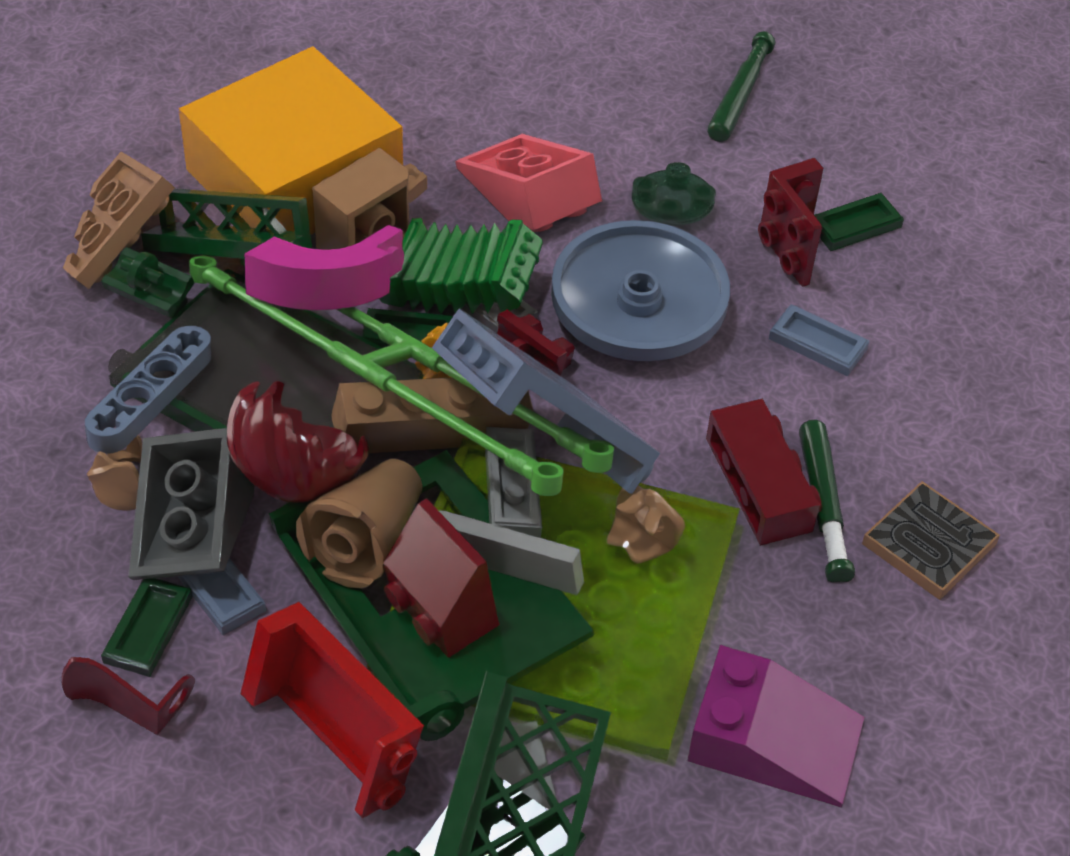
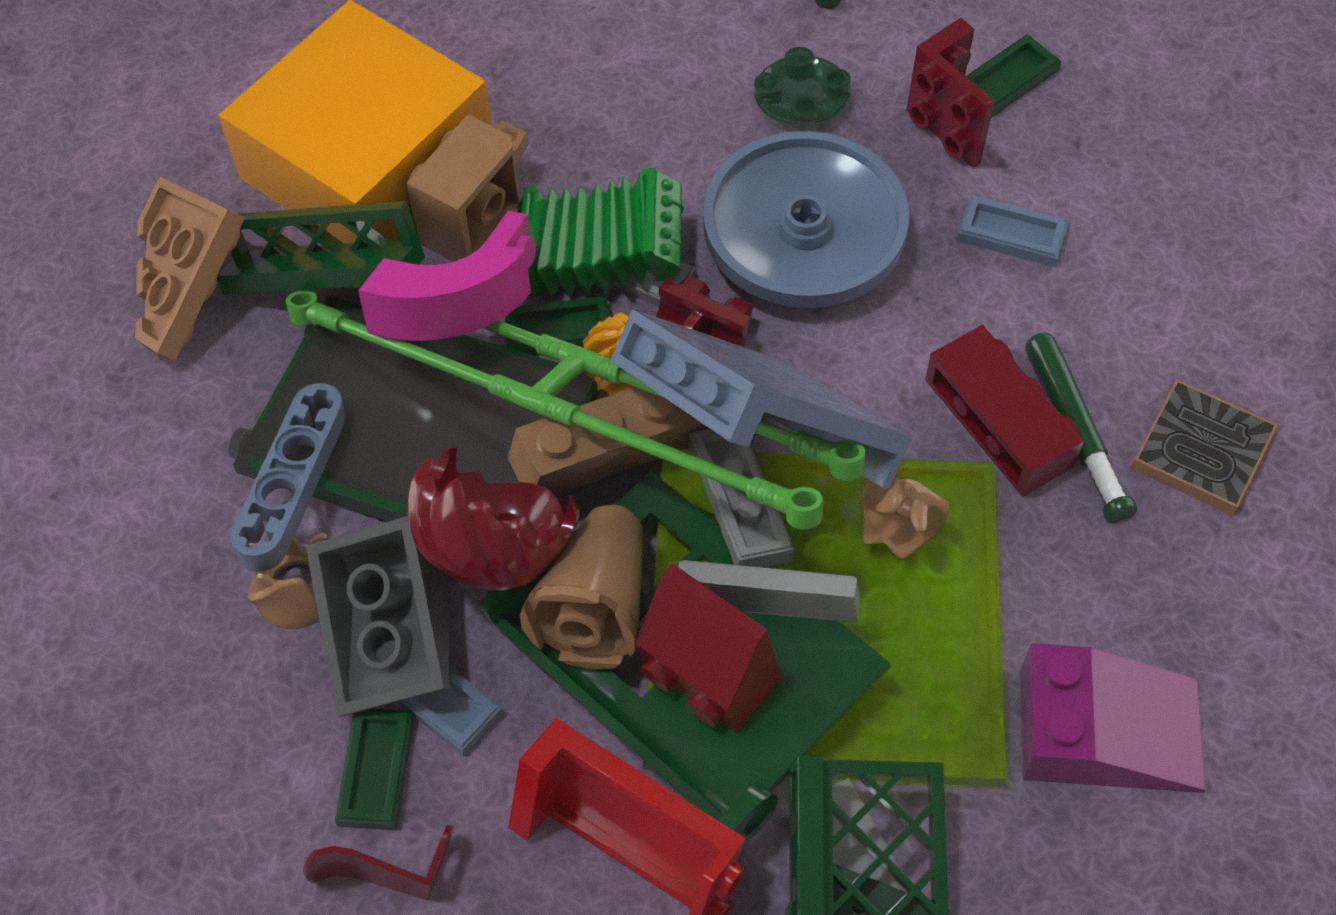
camera: 10 degrees left, 10 degrees up
(149, 282) = (244, 337): dark green hips -> none
(534, 180) = (641, 104): coral slope -> none

